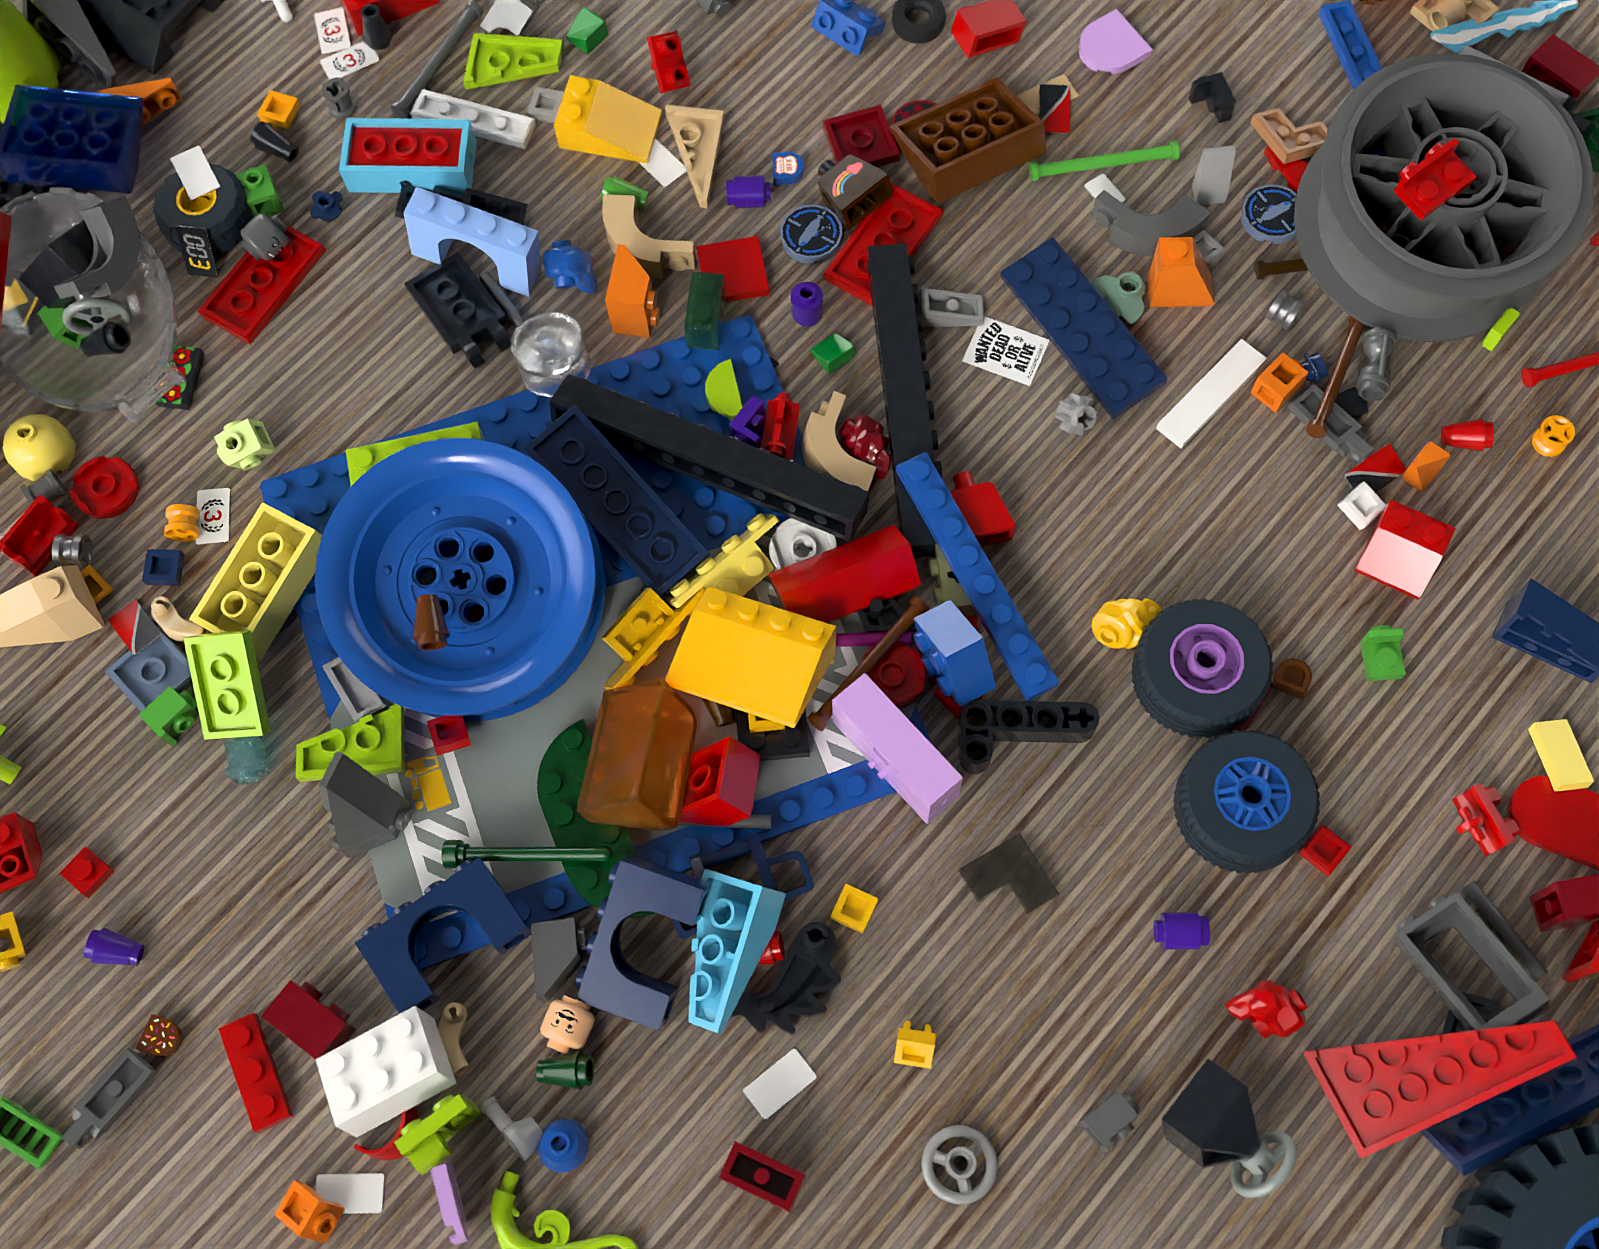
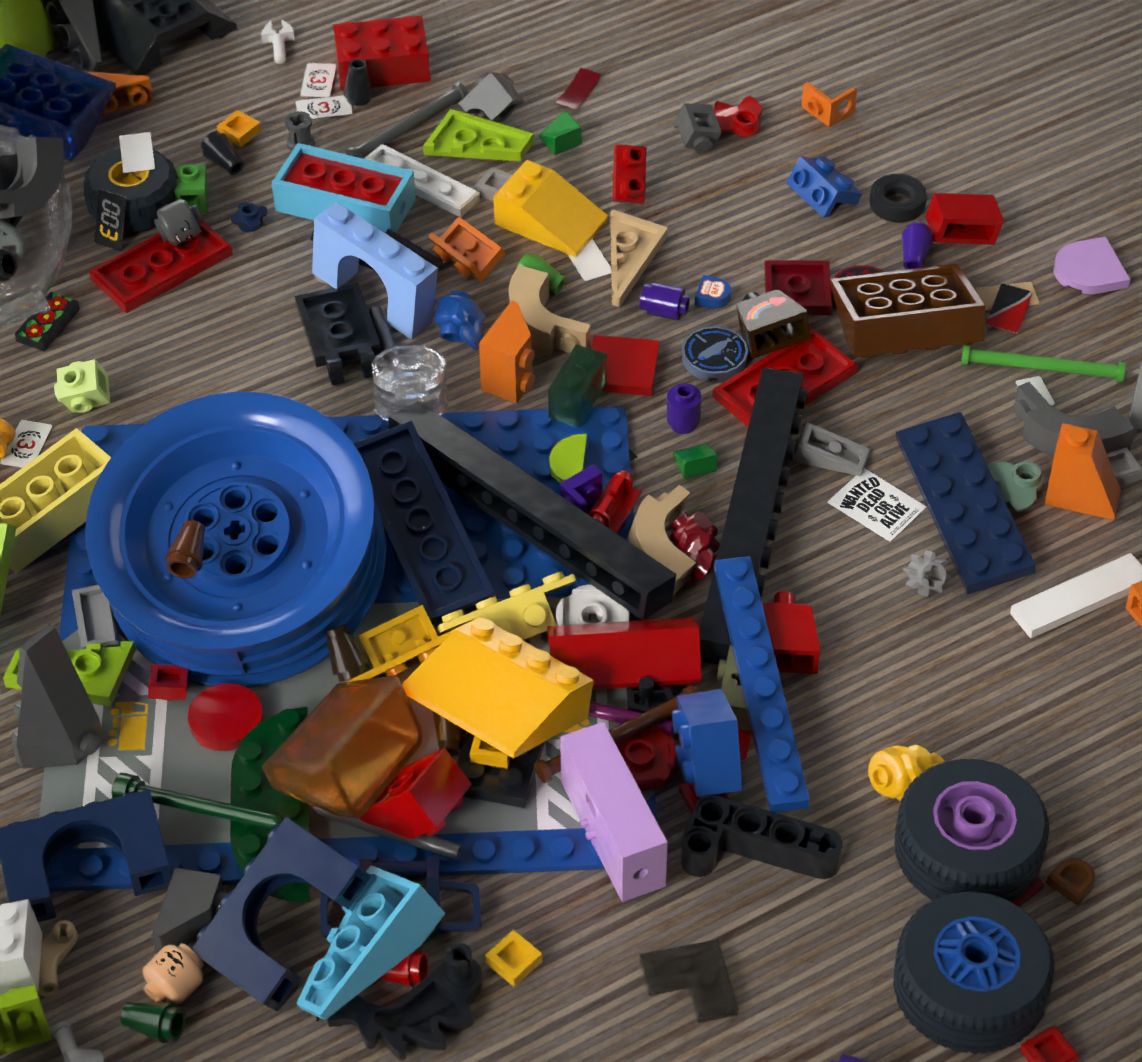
camera: 15 degrees right, 20 degrees down
(512, 750) = (224, 716): none -> red tile
(548, 185) = (468, 249): none -> orange bracket
(600, 660) = (345, 654): none -> dark brown cone
(953, 66) = (916, 244): none -> dark purple cone

